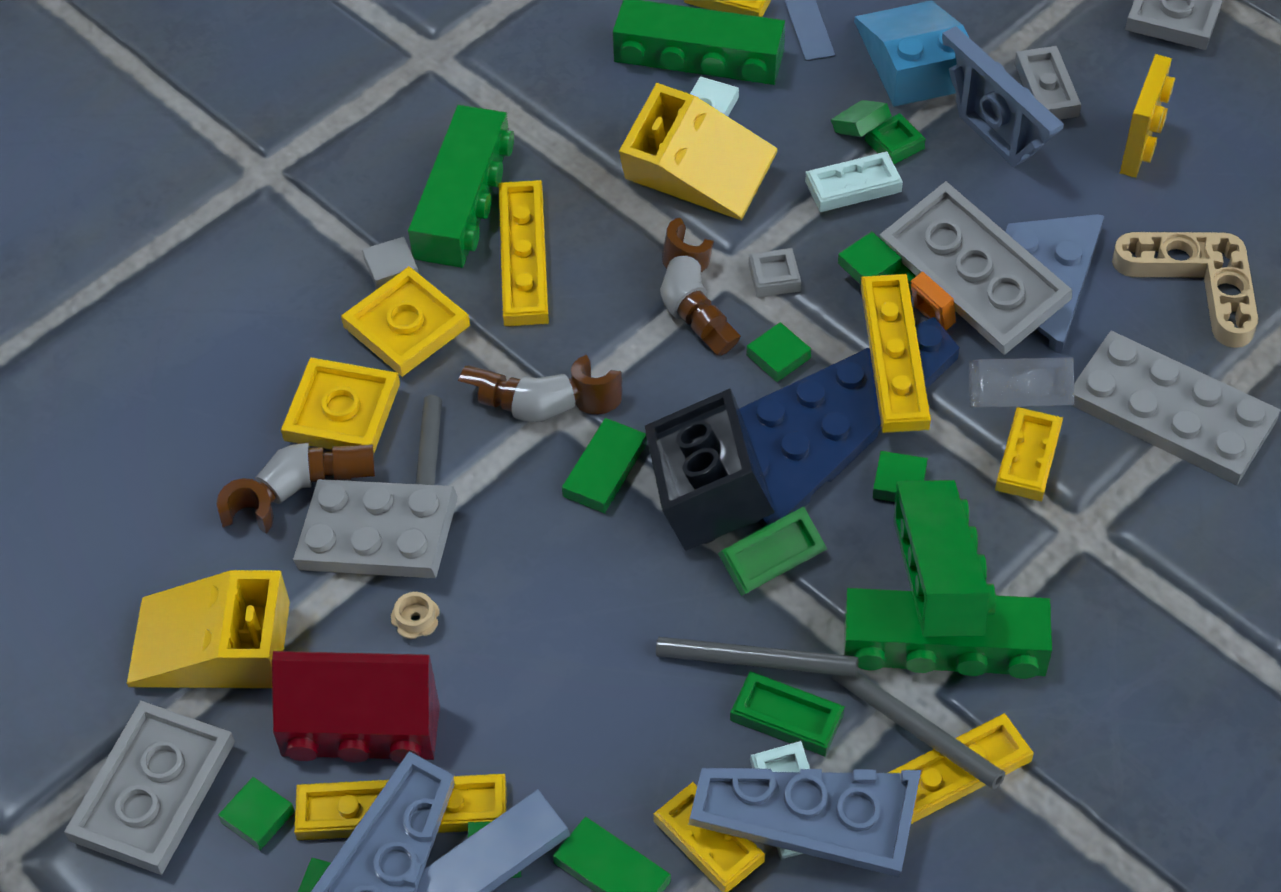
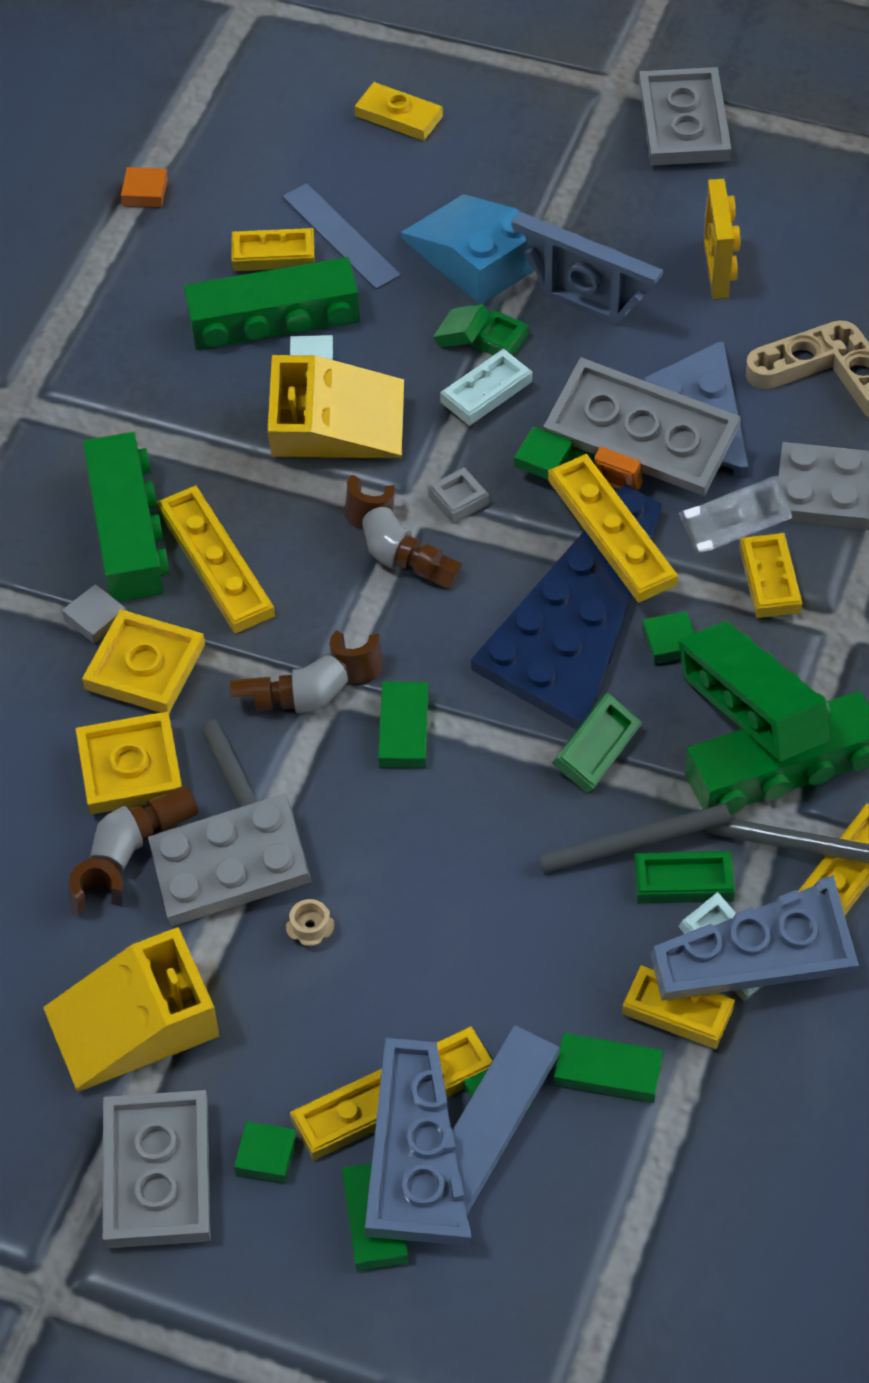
camera: 25 degrees left, 0 degrees up
(354, 705) = (311, 1020): dark red slope -> none
(707, 470) = (506, 691): black slope -> none
(778, 352) = (503, 565): green tile -> none
(1048, 80) = (607, 228): light grey plate -> none

